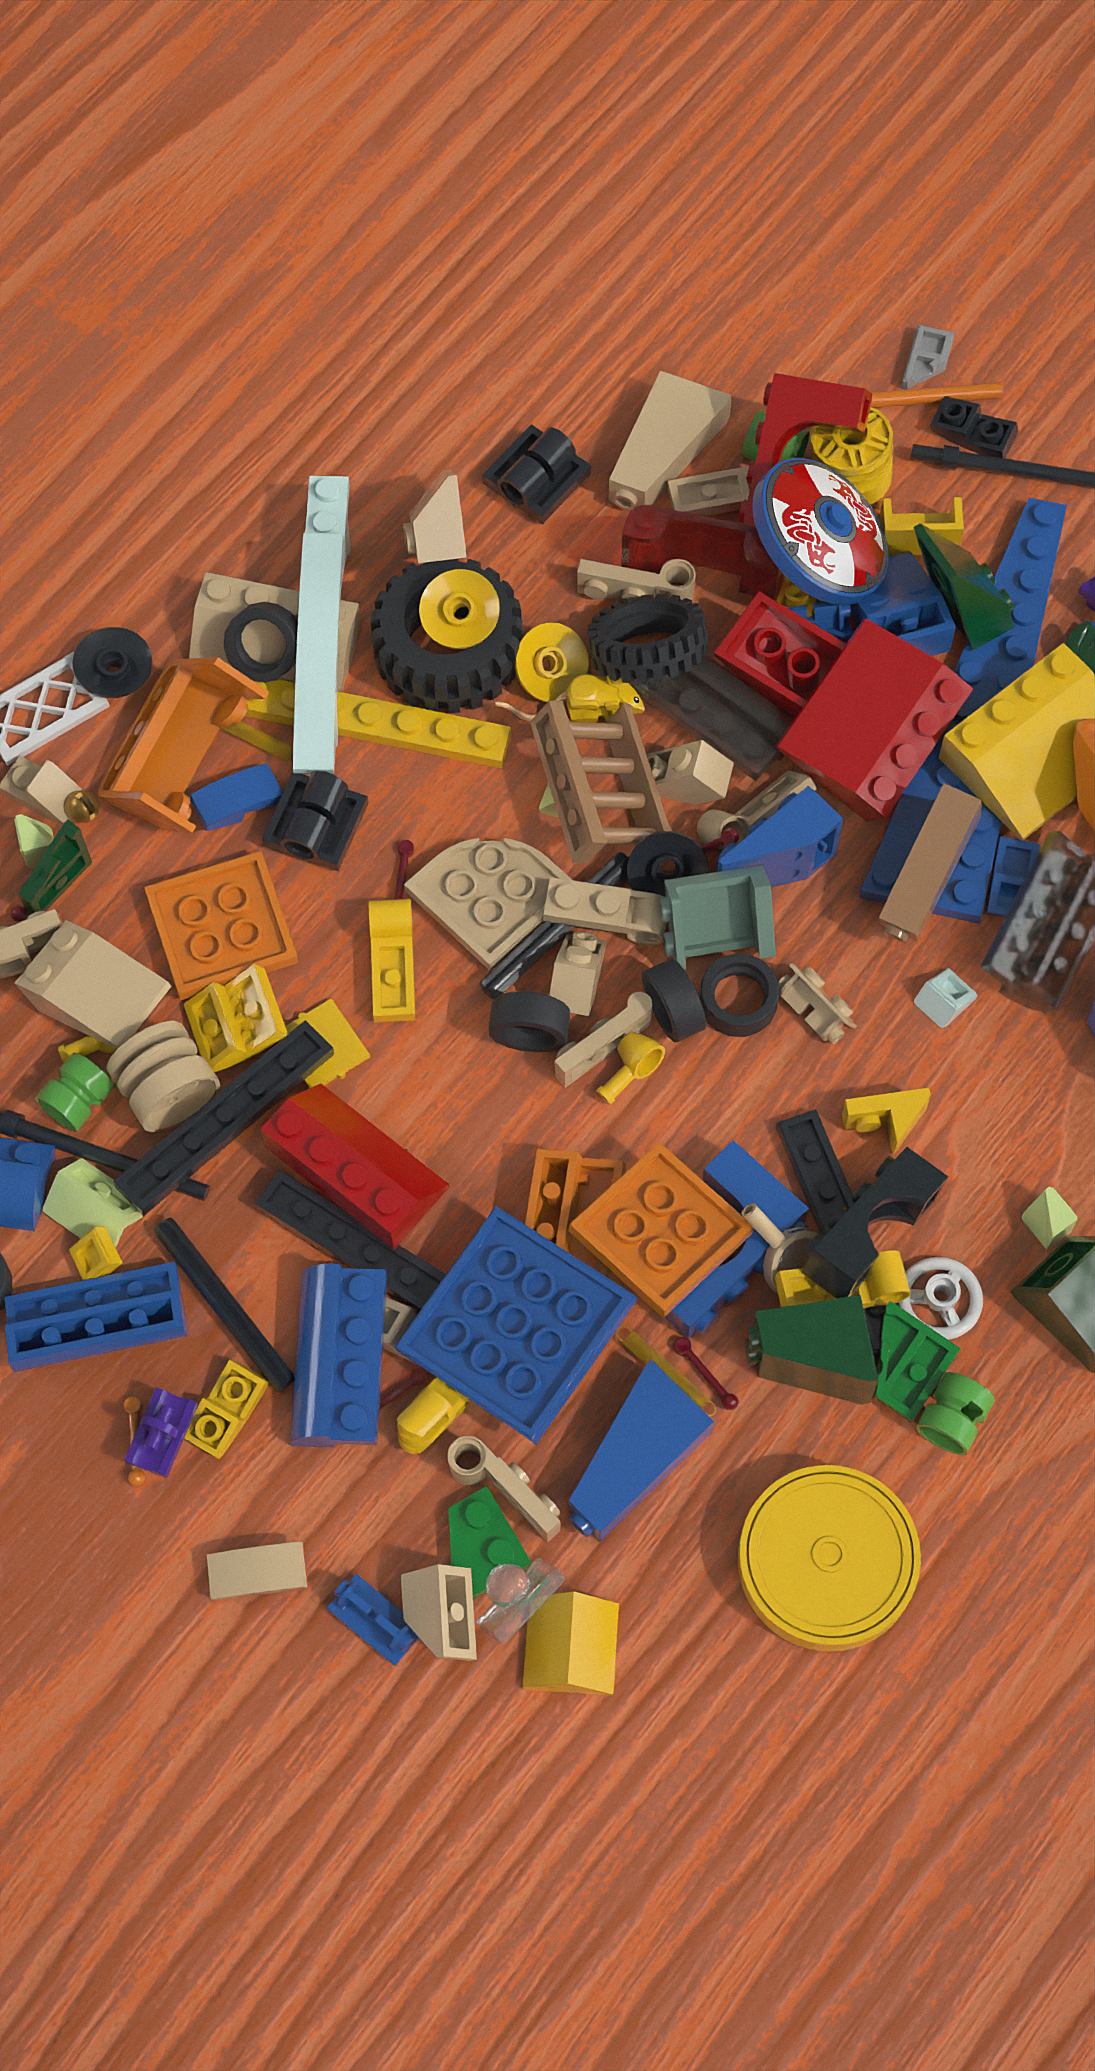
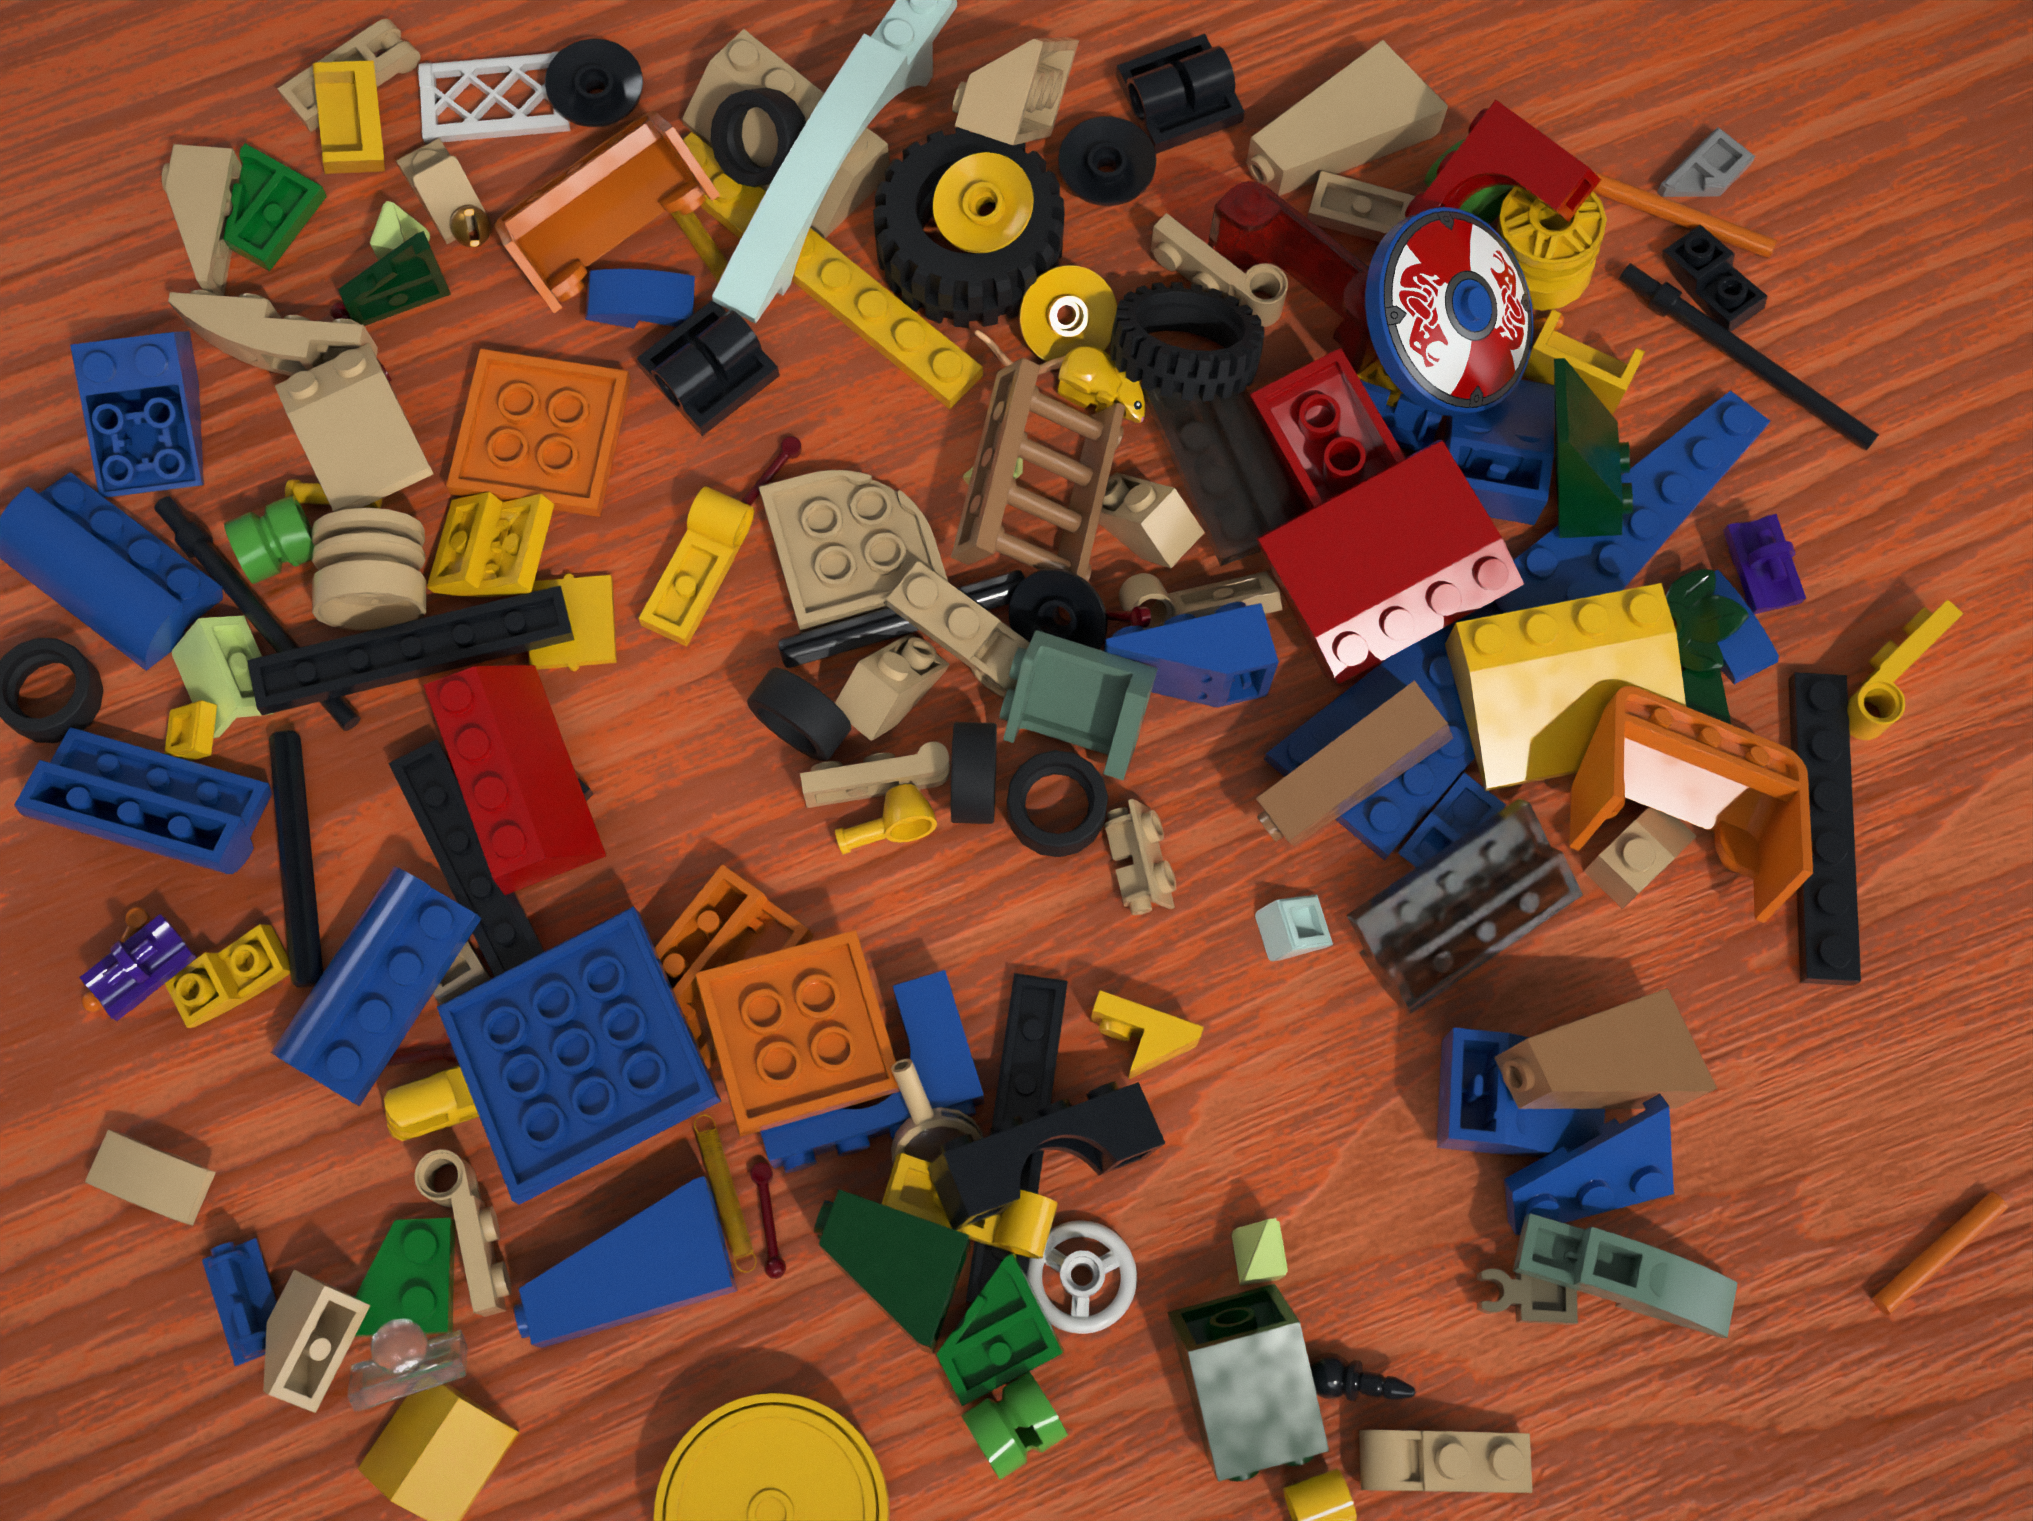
camera: 25 degrees right, 5 degrees up
(514, 530) = (1112, 144): none -> black dish

